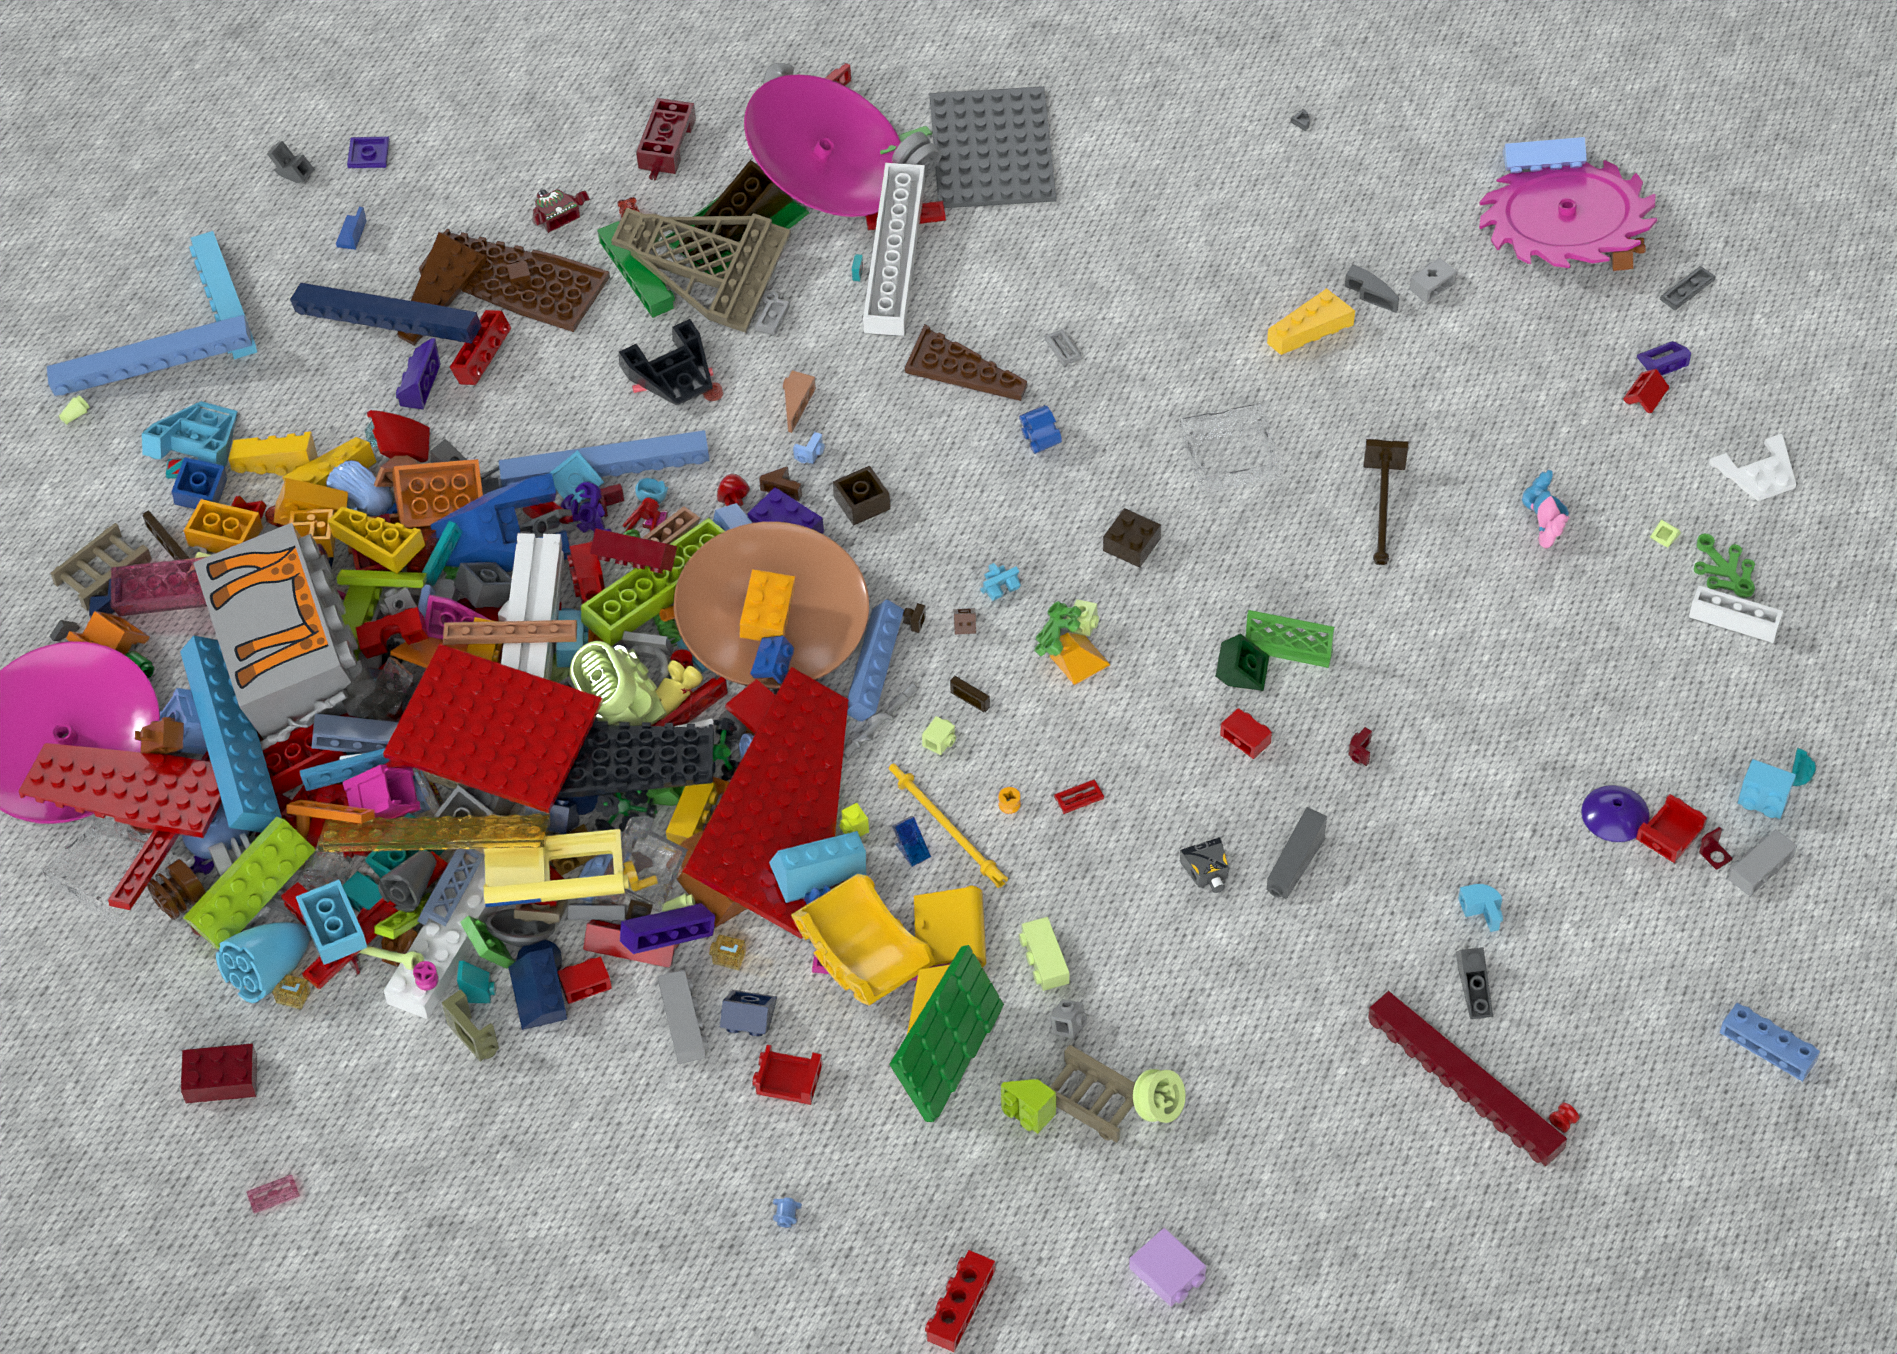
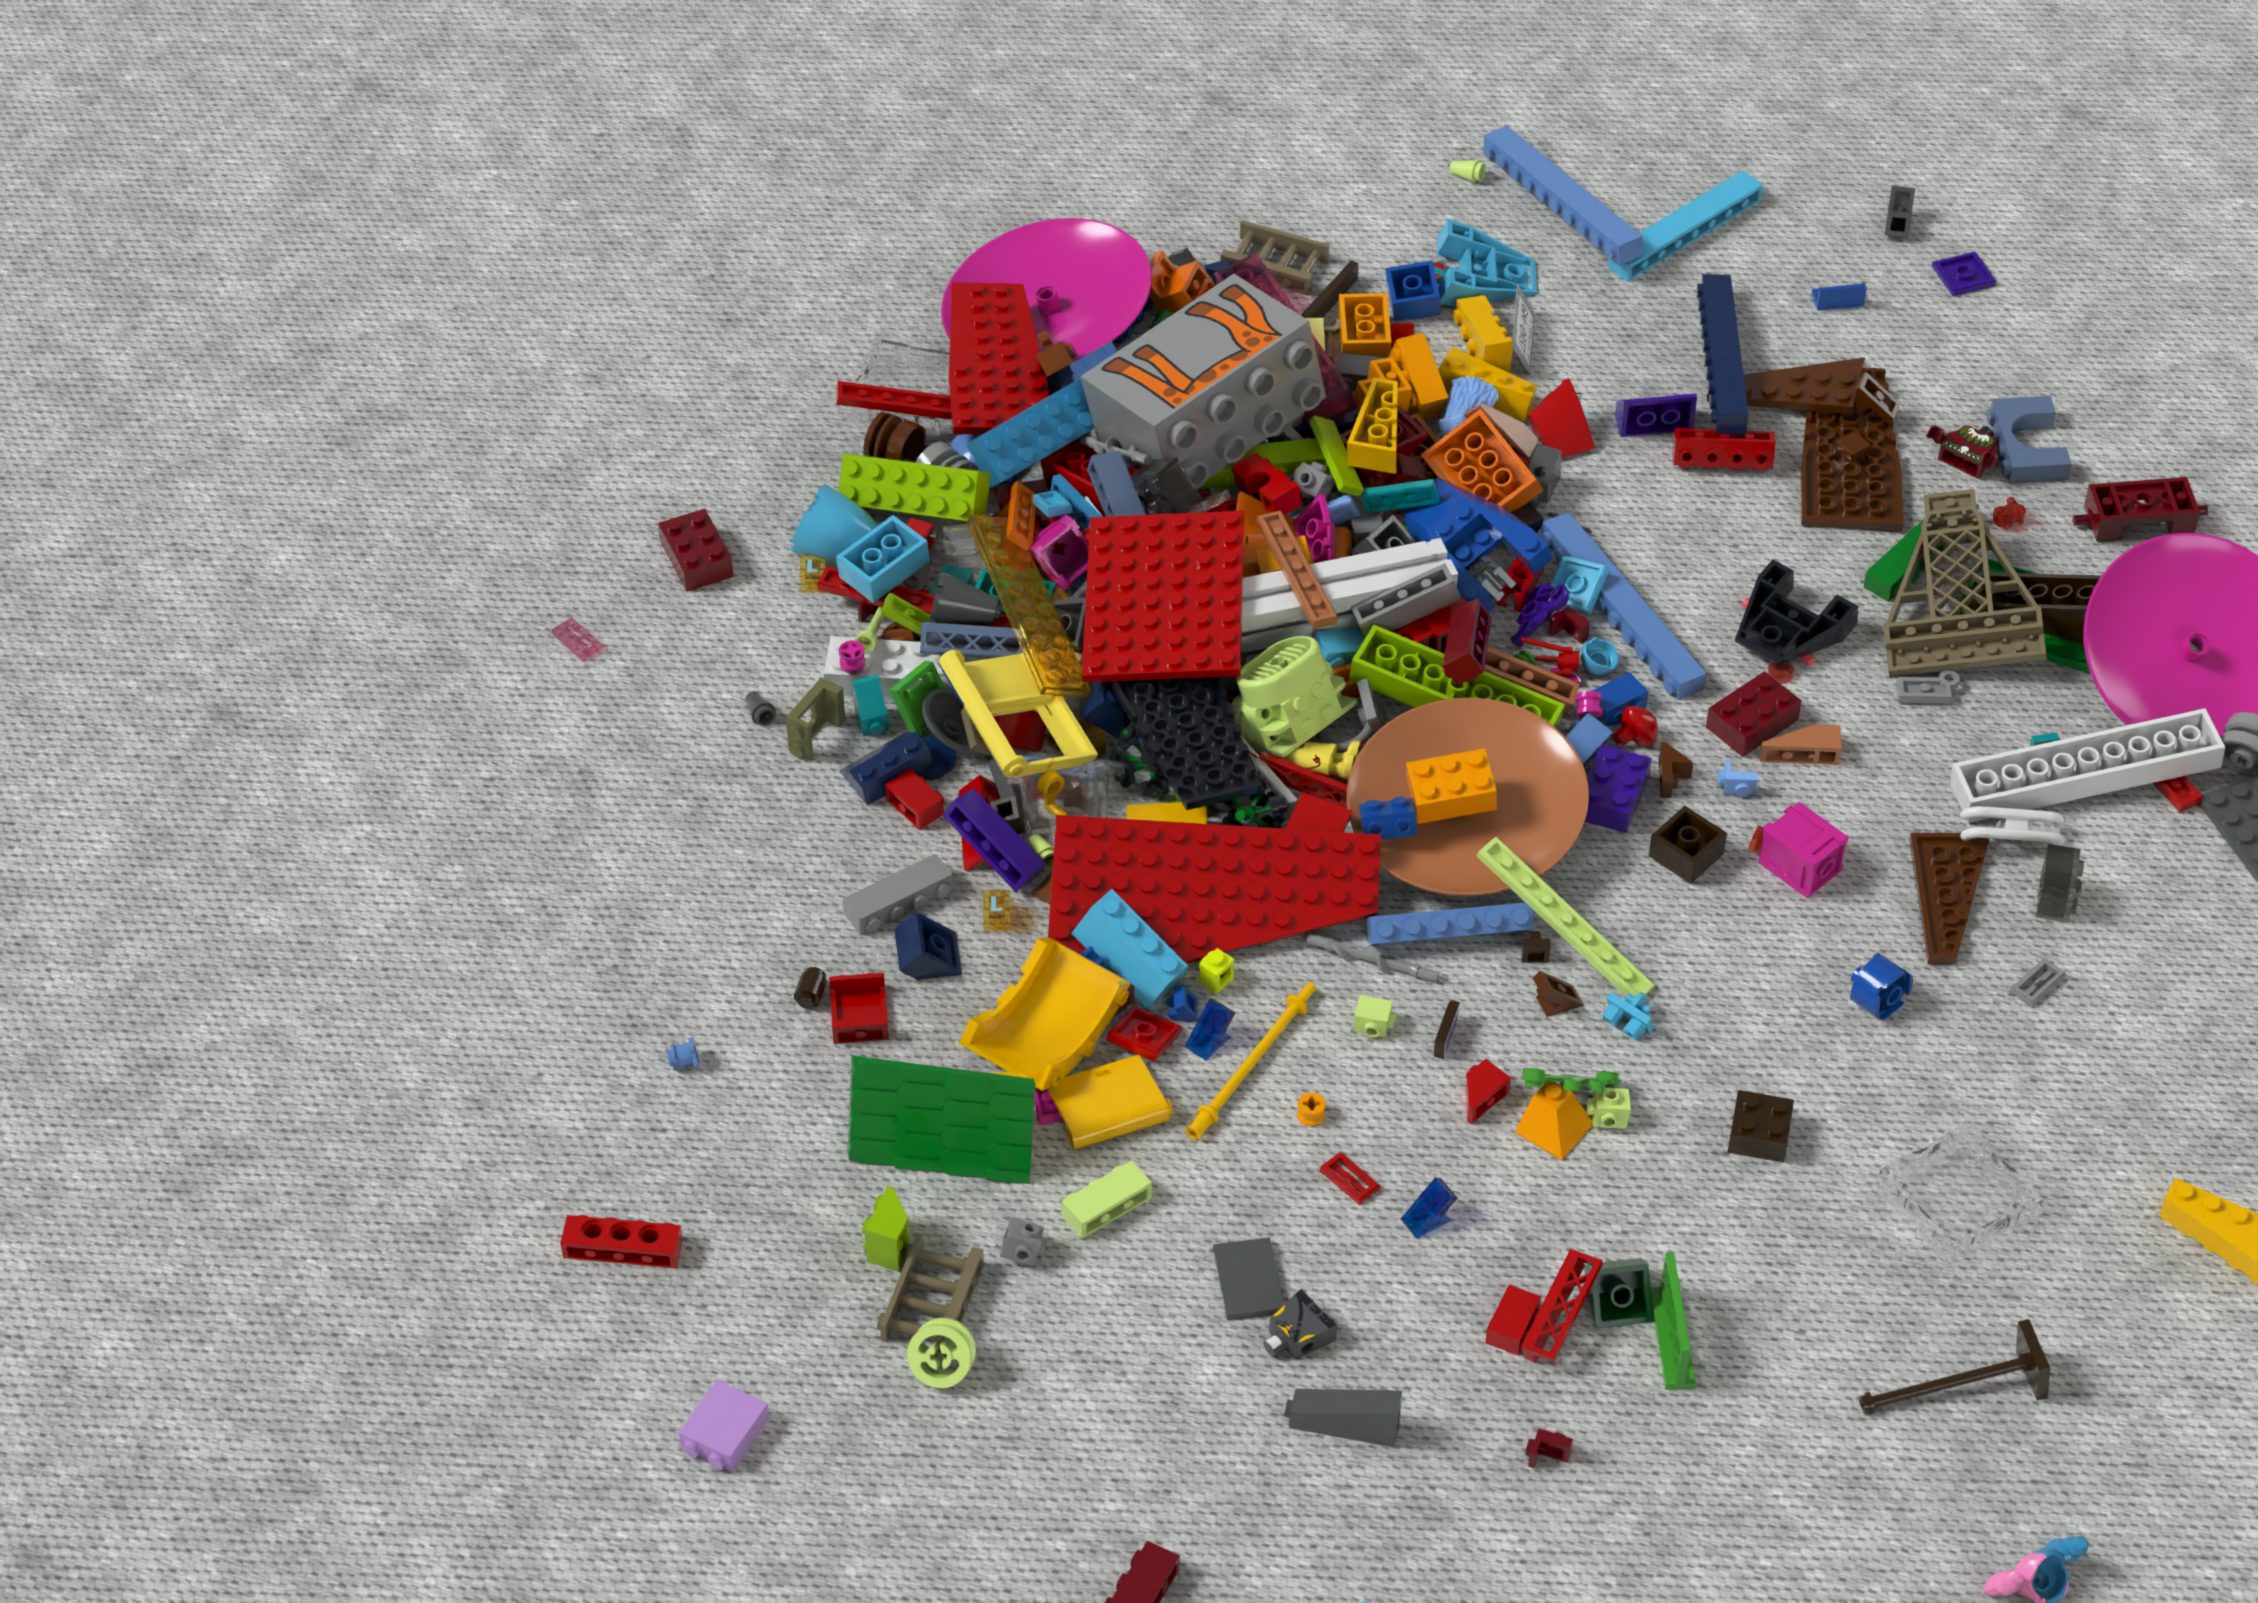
camera: 70 degrees right, 5 degrees down
(280, 426) = (1523, 329): none -> sticker
(332, 784) = (1052, 504): none -> medium azure tile
(427, 1069) = (761, 710): none -> dark grey cone
(484, 240) = (1872, 395): none -> reddish brown slope
(534, 176) = (2020, 461): none -> sand blue arch
(568, 576) = (1408, 601): none -> light grey brick
(698, 493) = (1619, 695): none -> blue brick
(705, 507) = (1589, 703): none -> dark pink wheel
(752, 418) = (1753, 713): none -> dark red brick
(752, 1103) = (810, 987): none -> dark brown brick
(870, 455) = (1757, 840): none -> clear red tile
(881, 854) = (1184, 1005): none -> blue tile
(896, 886) = (1144, 1033): none -> red tile
(899, 430) = (1803, 849): none -> dark pink container
(908, 586) = (1563, 919): none -> yellowish green tile
(928, 309) = (2013, 824): none -> white piece
(992, 301) = (2059, 883): none -> clear smoke brick
(1034, 689) = (1484, 1088): none -> red slope
(1131, 752) = (1429, 1208): none -> clear blue slope
(1147, 885) = (1248, 1278): none -> dark grey tile
(1246, 702) = (1556, 1302): none -> red fence

